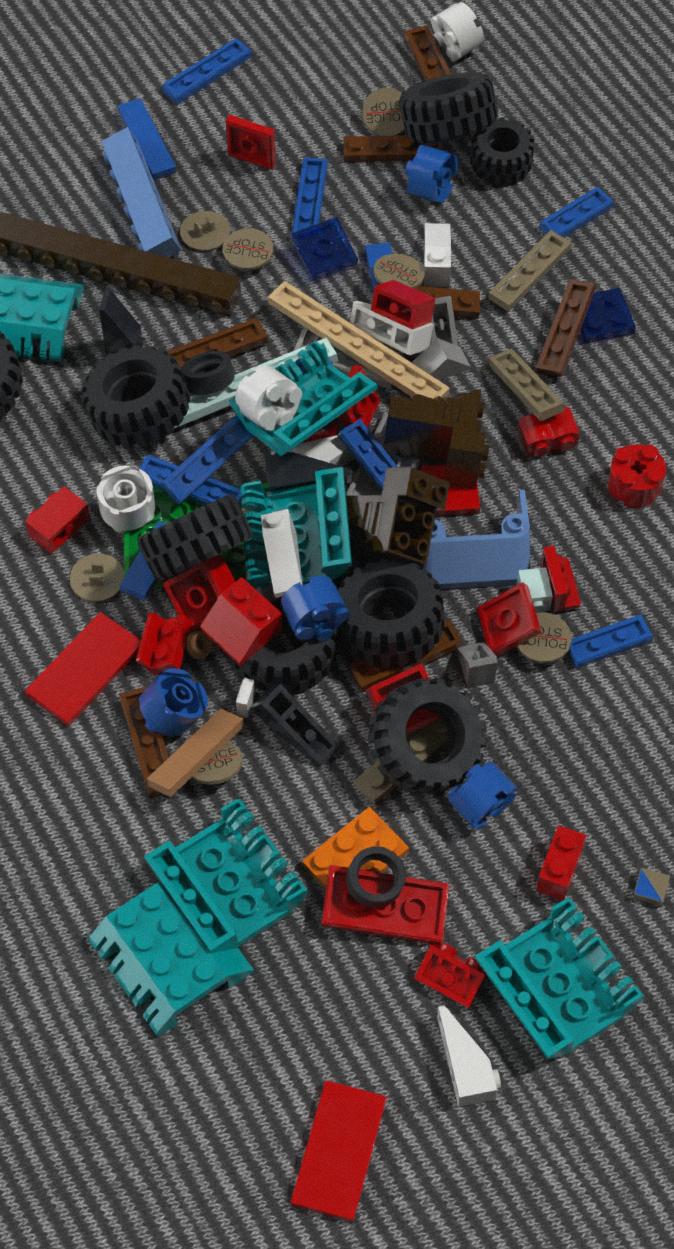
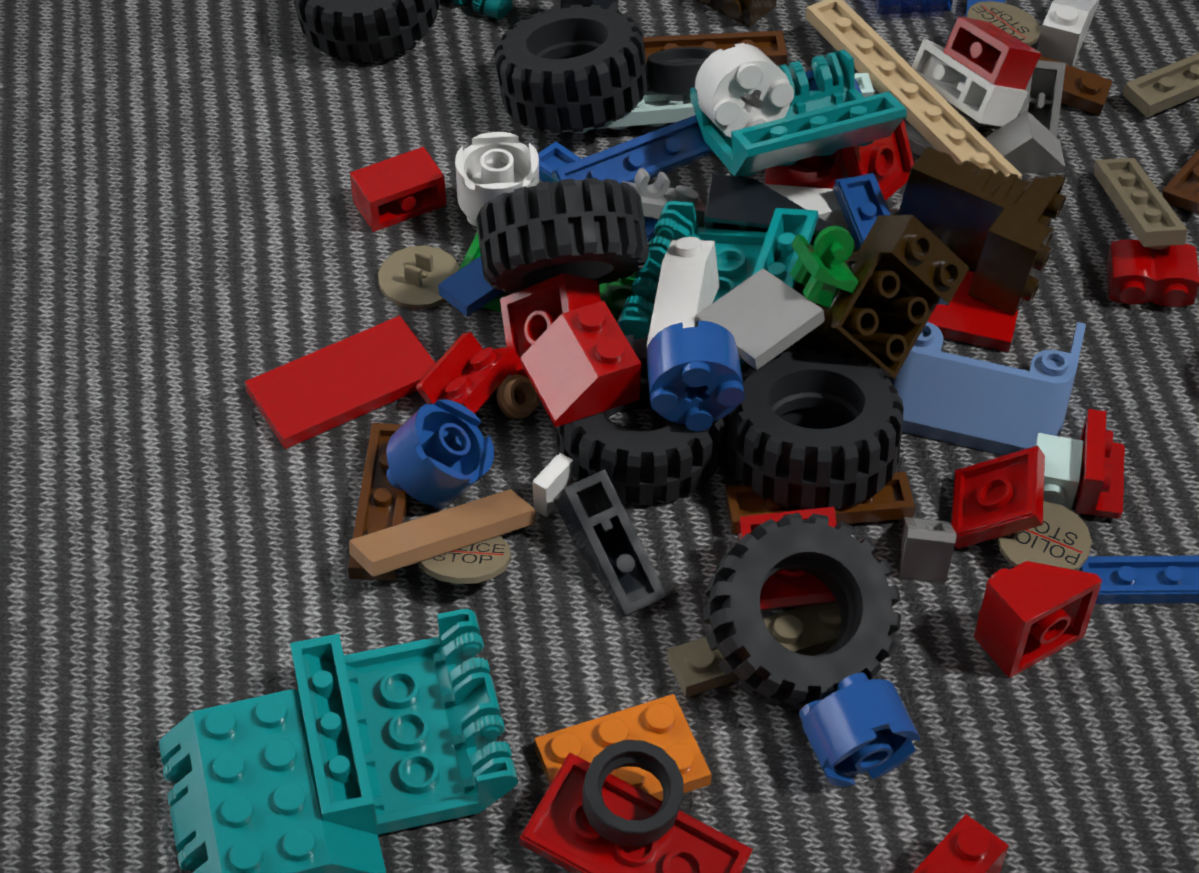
camera: 20 degrees right, 10 degrees down
(230, 481) = (659, 193): none -> light grey plate
(338, 556) = (763, 317): none -> light grey tile
(365, 511) = (823, 265): none -> green hips
(553, 690) = (1034, 613): none -> red slope

